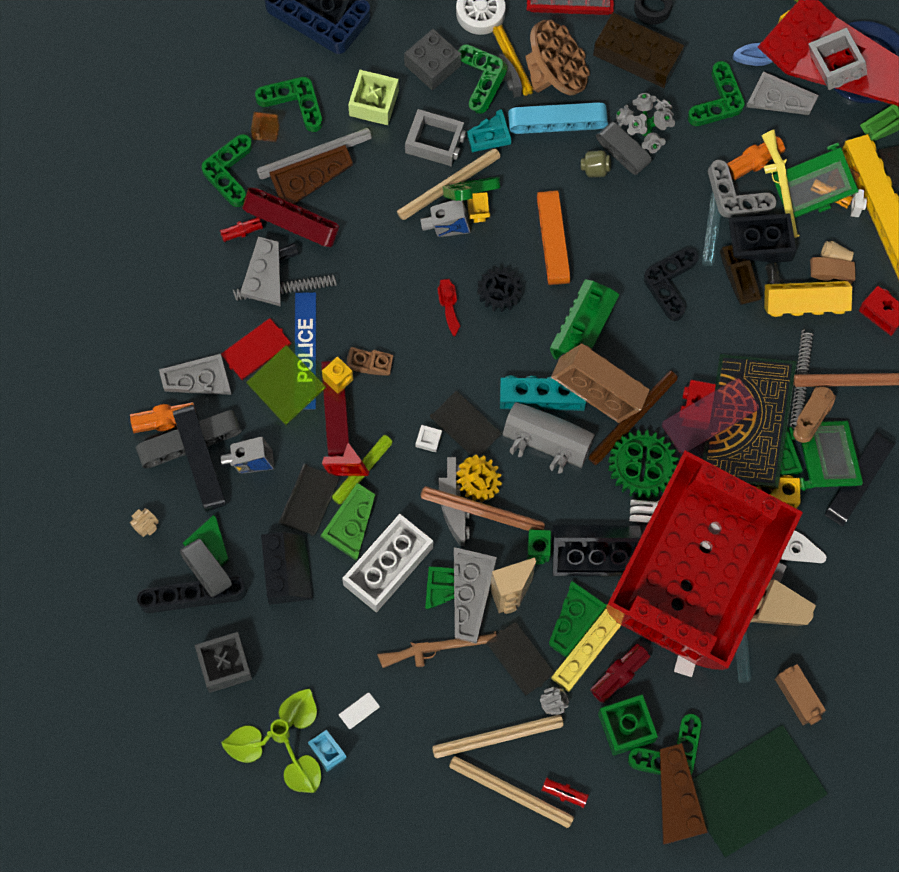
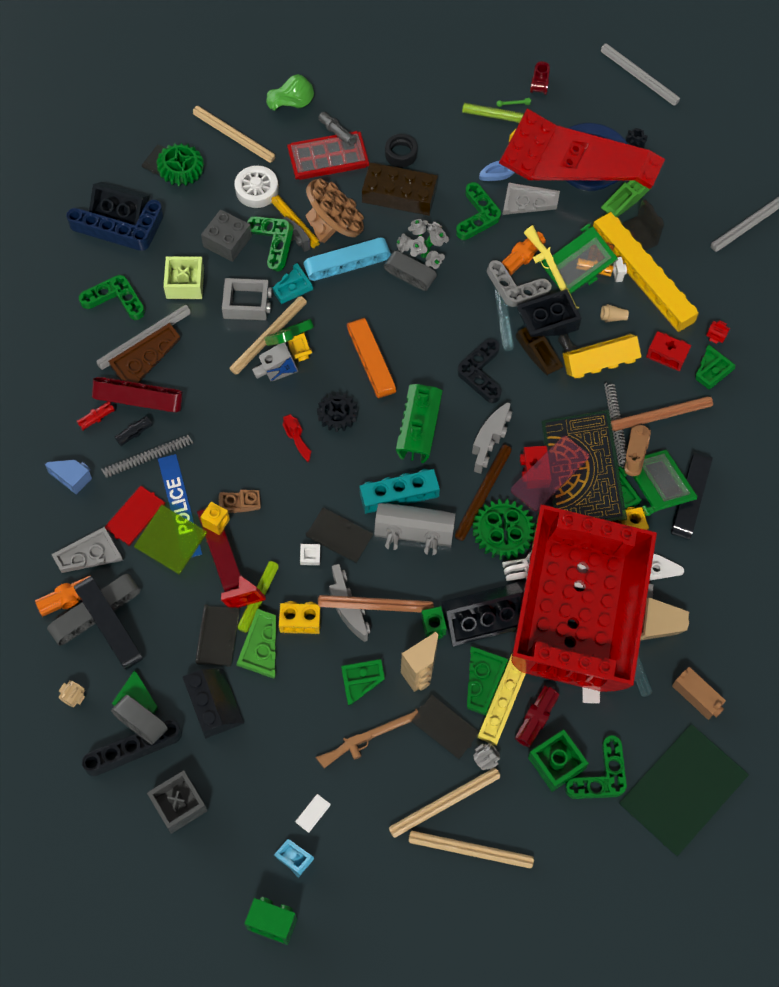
camera: 15 degrees left, 5 degrees down
(199, 287) = (70, 473): none -> medium blue slope
(221, 167) = (64, 367): green beam -> none
(246, 742) = (257, 828): lime plant -> none
(249, 456) = (153, 610): light grey torso -> none
(263, 273) = (125, 448): light grey wing -> none
(265, 126) = (94, 324): clear orange panel -> none
(287, 807) = (271, 920): none -> green brick
(388, 563) = (303, 672): white brick -> none
(398, 507) = (299, 623): none -> yellow brick
(471, 591) = (384, 673): light grey wing -> none
(478, 478) = (364, 577): yellow gear -> none
(579, 799) = (534, 838): red pin -> none
(596, 163) = (390, 288): olive head -> none
(600, 383) = (448, 468): medium nougat brick -> none
(661, 353) = (490, 434): none -> light grey slope
(680, 803) = (624, 819): reddish brown wing -> none
(829, 268) = (615, 326): medium nougat slope -> none
(832, 44) = (560, 146): light grey window -> none

